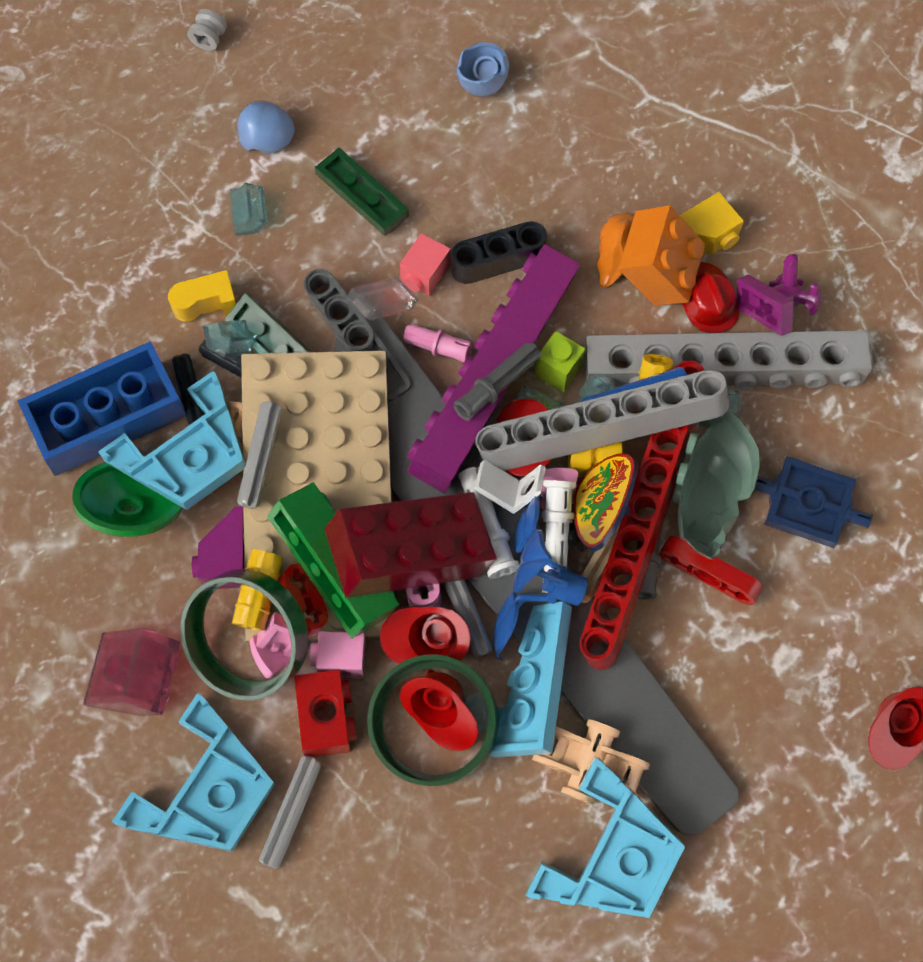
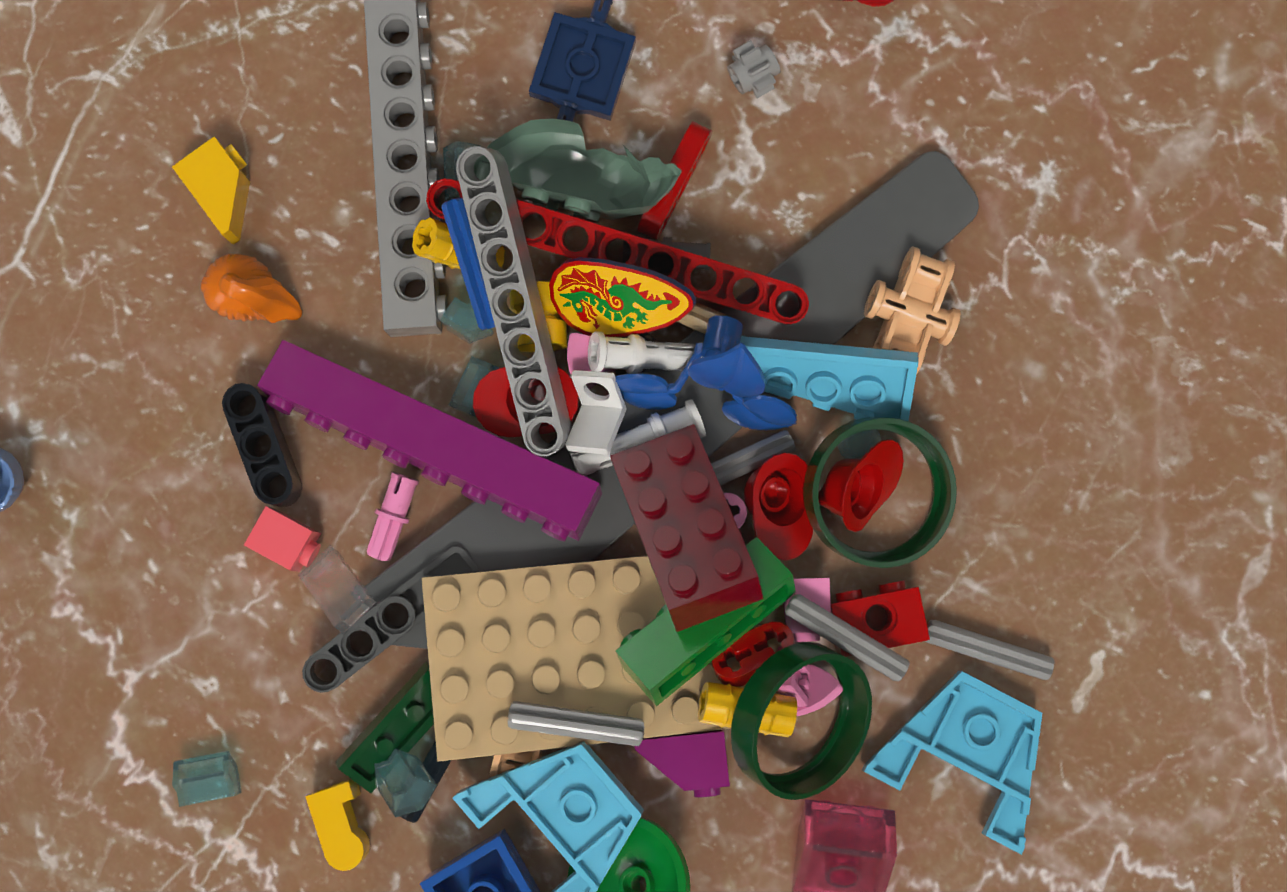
camera: 90 degrees left, 15 degrees up
(186, 378) = (464, 830): black axle -> none
(264, 127) = (79, 768): medium blue hair -> none
(309, 677) = (847, 637): none -> light grey axle
(361, 191) = (174, 630): dark green plate -> none
(487, 389) = (463, 432): dark grey axle -> none
(559, 361) = (415, 362): lime brick -> none
(628, 861) = (1023, 270): medium azure wing -> none
(662, 256) = (269, 236): orange brick -> none
(712, 301) = (311, 186): red piece -> none
(775, 303) = (330, 101): magenta piece -> none
(810, 639) = (753, 69): none -> light grey gear

